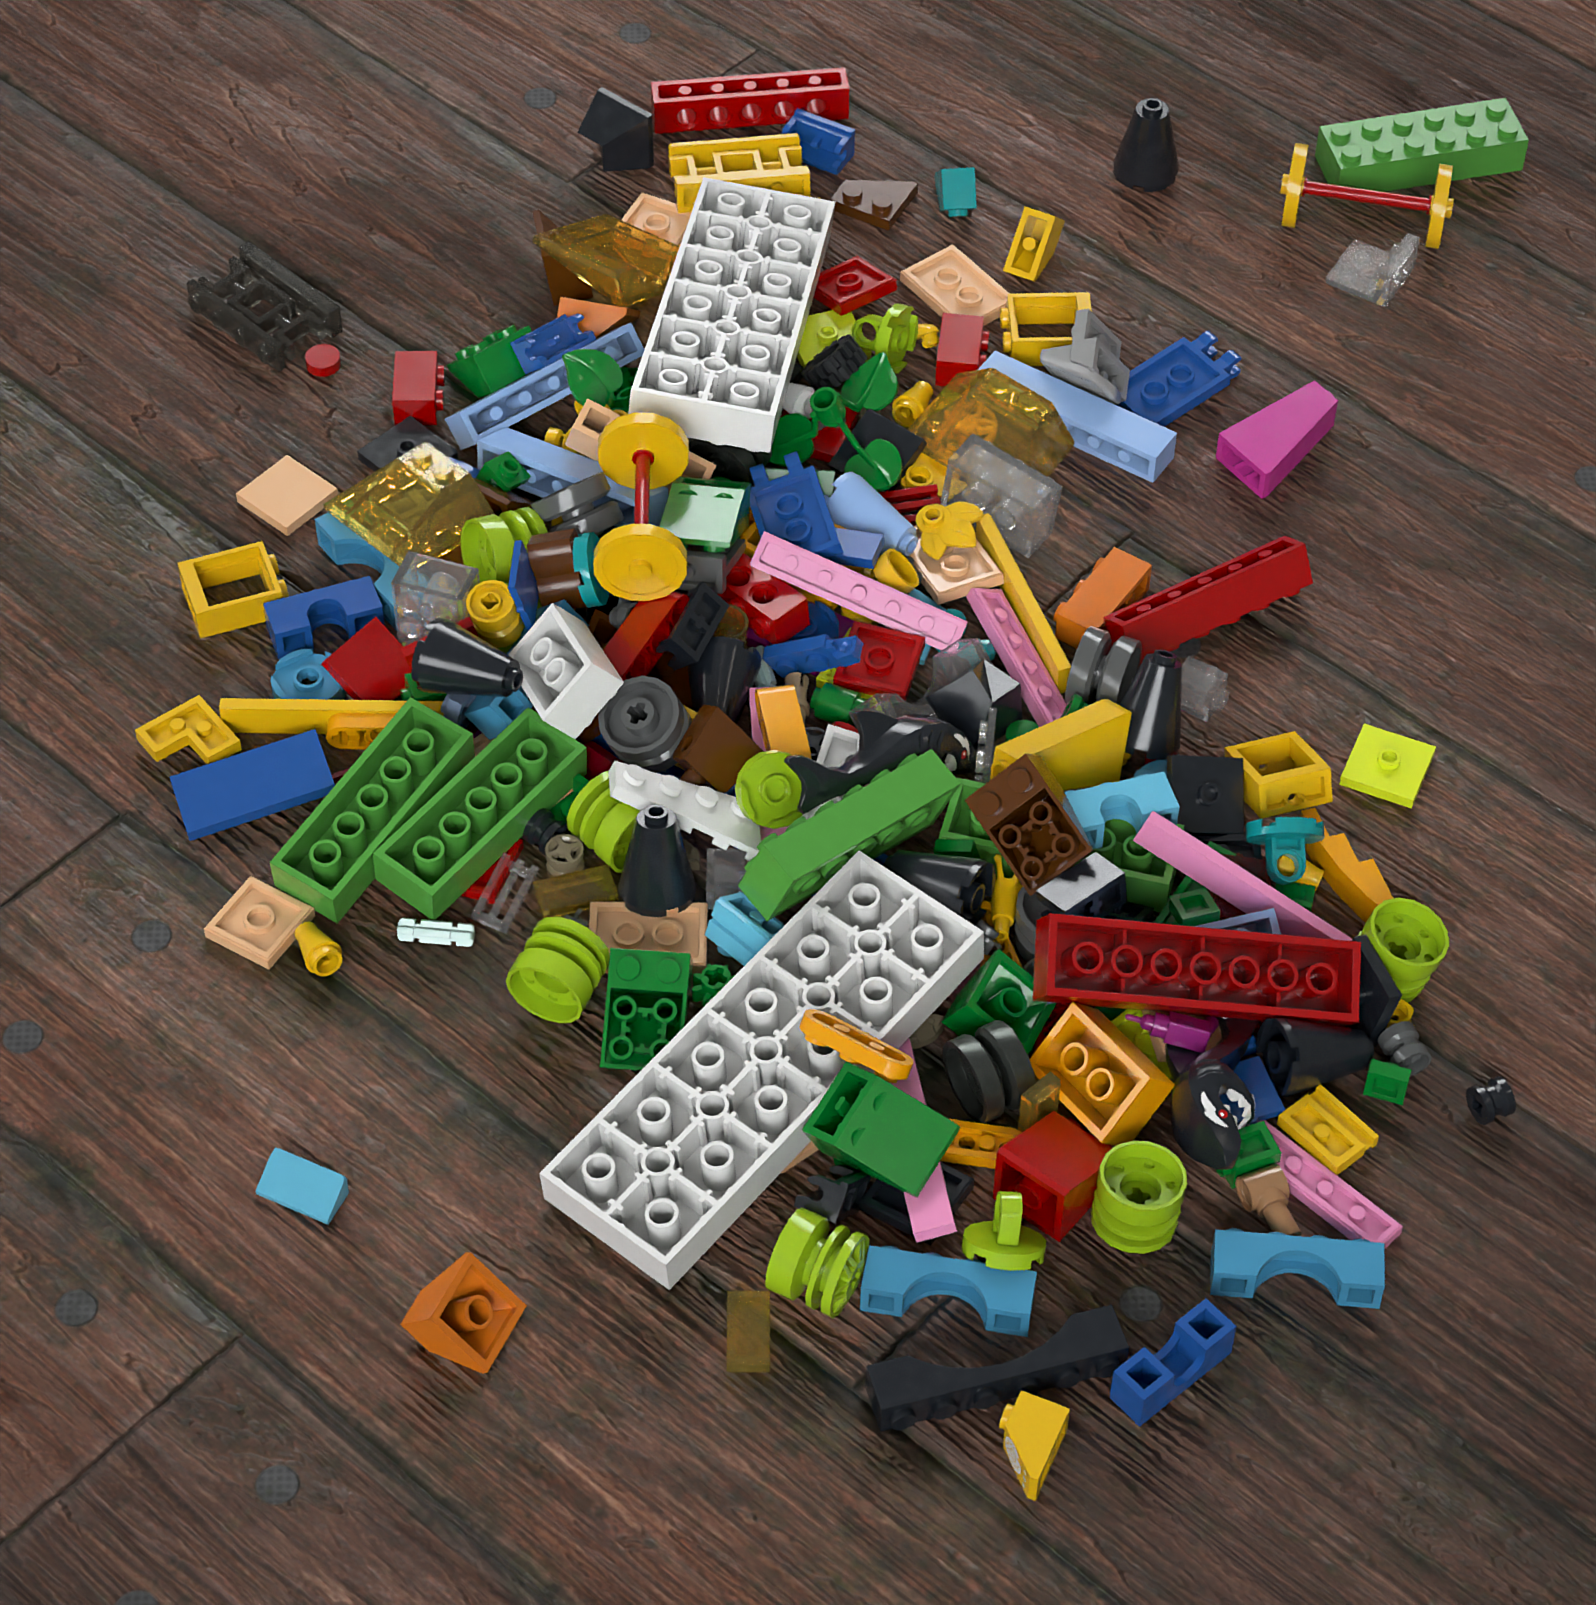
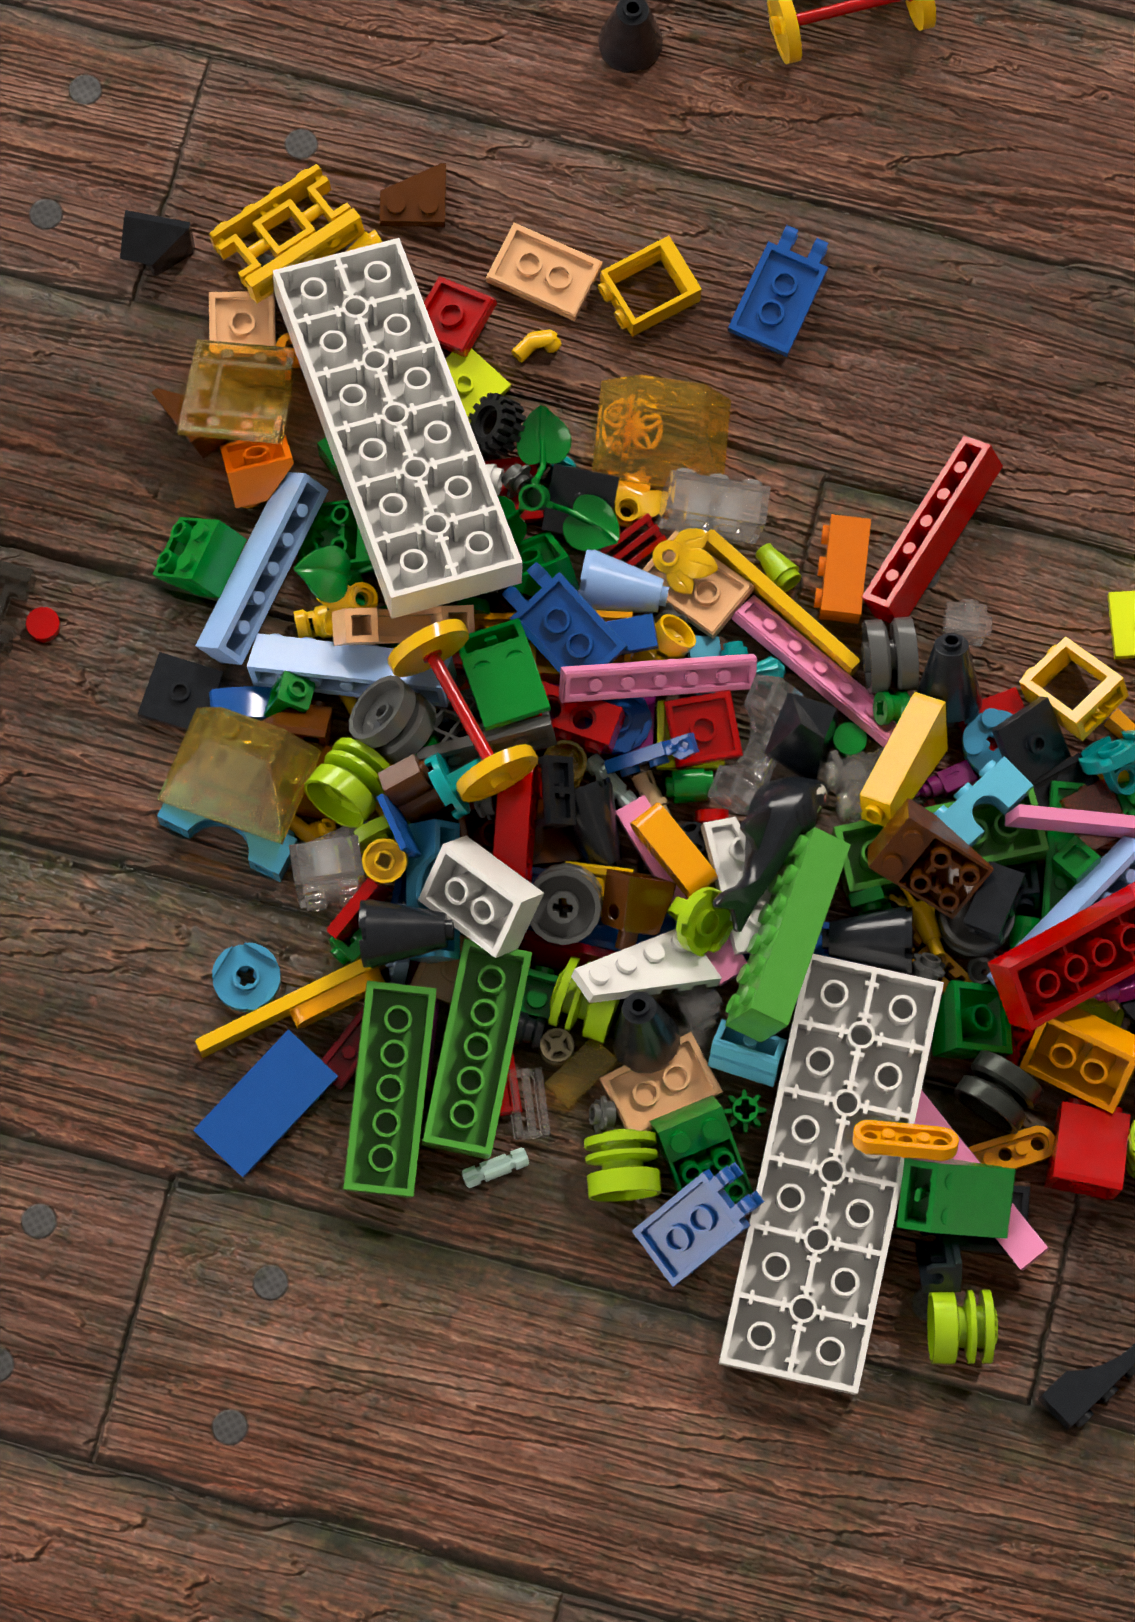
camera: 30 degrees left, 25 degrees up
(189, 724) = (178, 1070): yellow plate -> none
(224, 568) = (142, 879): yellow window -> none
(259, 922) = (350, 1228): light nougat tile -> none
(286, 495) = (105, 788): light nougat tile -> none
(297, 616) = (236, 882): blue arch -> none
(302, 1186) = (533, 1452): medium azure slope -> none
(318, 950) = (416, 1234): yellow cone -> none
(369, 664) = (295, 940): red tile -> none
(417, 386) = (148, 620): brick -> none
(464, 1314) = (723, 1500): orange slope -> none
(550, 342) = (248, 526): blue hinge -> none
(601, 1047) = (695, 1224): none -> tile
(748, 99) = (248, 140): red brick -> none
(748, 1331) = (930, 1398): clear yellow tile -> none
(822, 141) = (337, 155): blue hinge -> none
(894, 334) = (525, 370): lime tile -> none
(899, 1278) = (1101, 1278): dark azure arch -> none
(911, 403) = (579, 426): yellow cone -> none
(956, 190) = (484, 157): teal slope -> none
(960, 346) = (587, 347): brick -> none
(1004, 1240) = (1082, 1234): lime tile -> none
(1033, 243) = (585, 191): yellow slope -> none
(1039, 577) = (778, 567): none -> lime cone
(1039, 1101) = (1052, 1106): clear yellow tile -> none
(1090, 360) = (718, 324): light grey piece -> none
(1097, 424) = (734, 374): light blue brick -> none
(1277, 437) = (898, 320): dark pink slope -> none
(1374, 272) = (886, 80): clear bracket -> none

